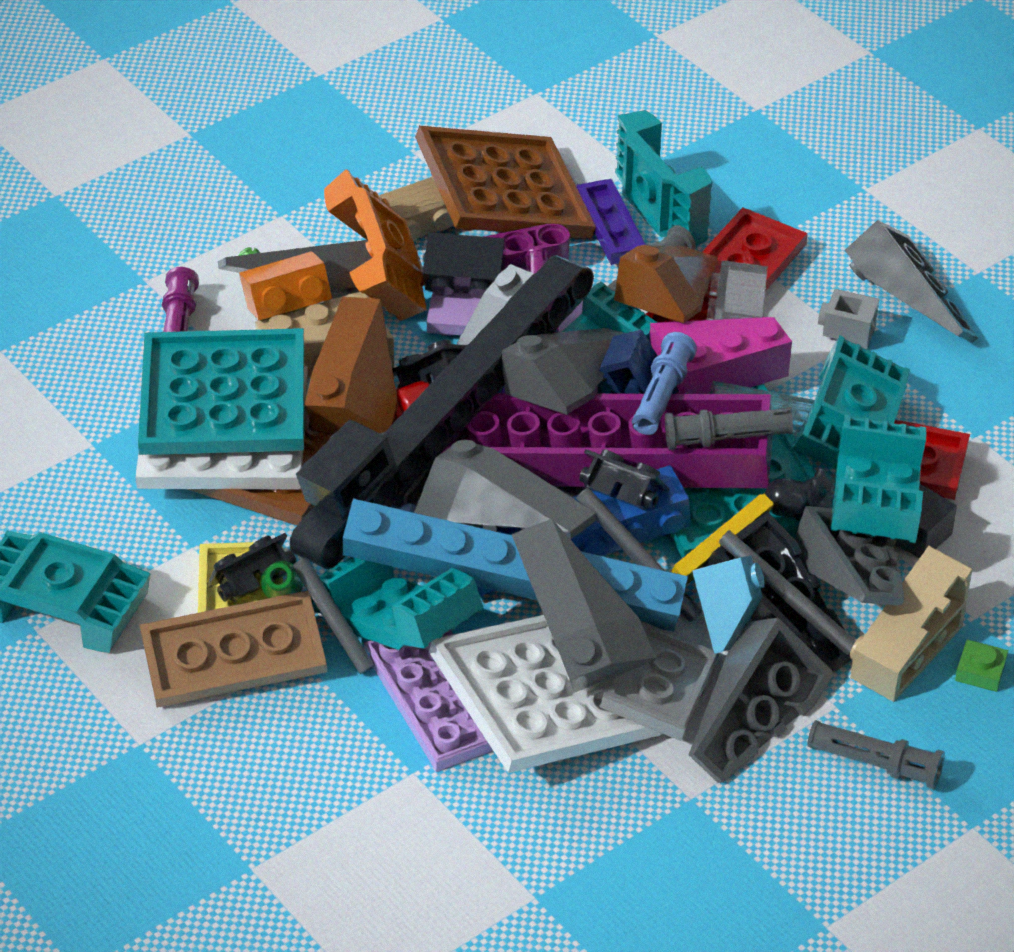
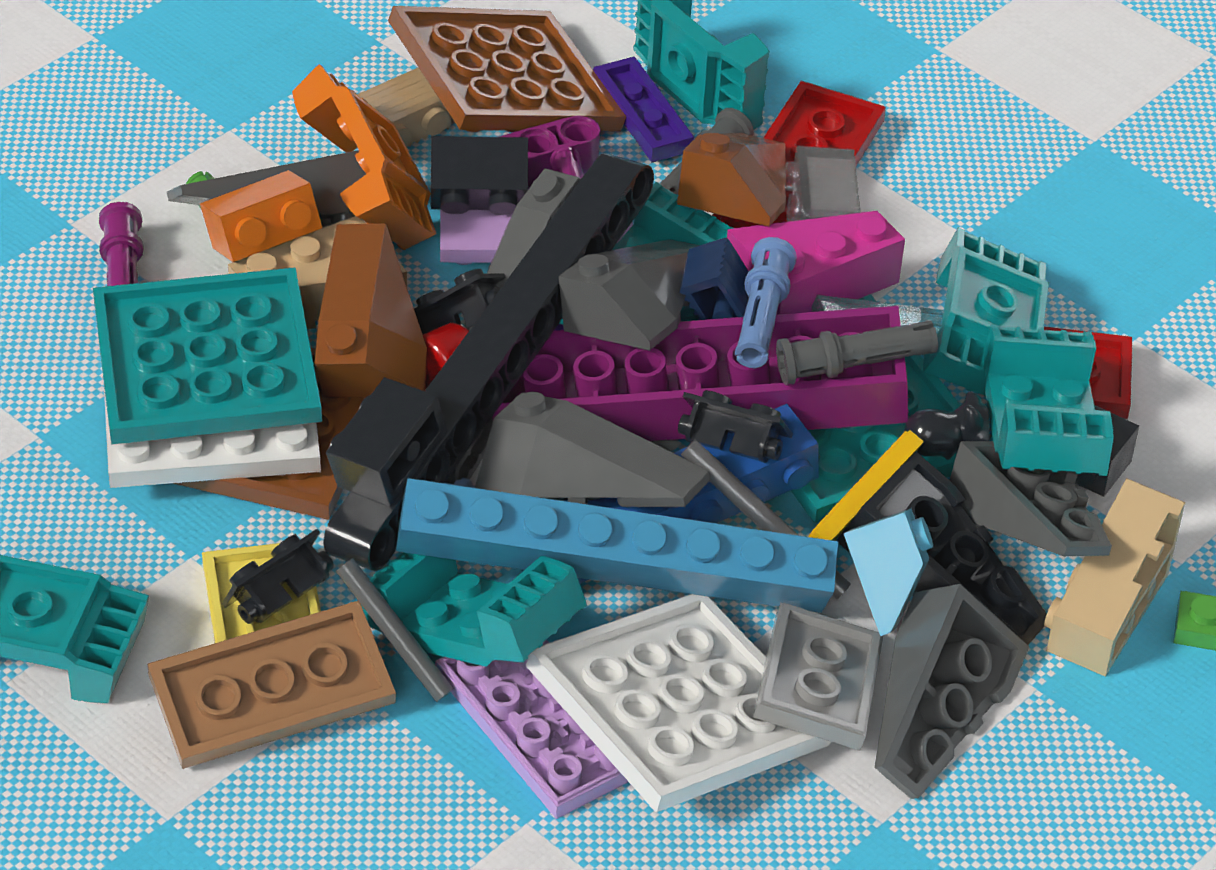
camera: 10 degrees left, 0 degrees up
(291, 585) = (311, 603): green cone -> none
(586, 616) = (720, 600): dark grey wedge -> none
(791, 594) = (964, 554): flat silver bar -> none
(849, 316) = (956, 203): light grey brick -> none
(897, 764) = (1033, 729): dark grey pin -> none
(901, 269) = (1000, 139): wedge -> none

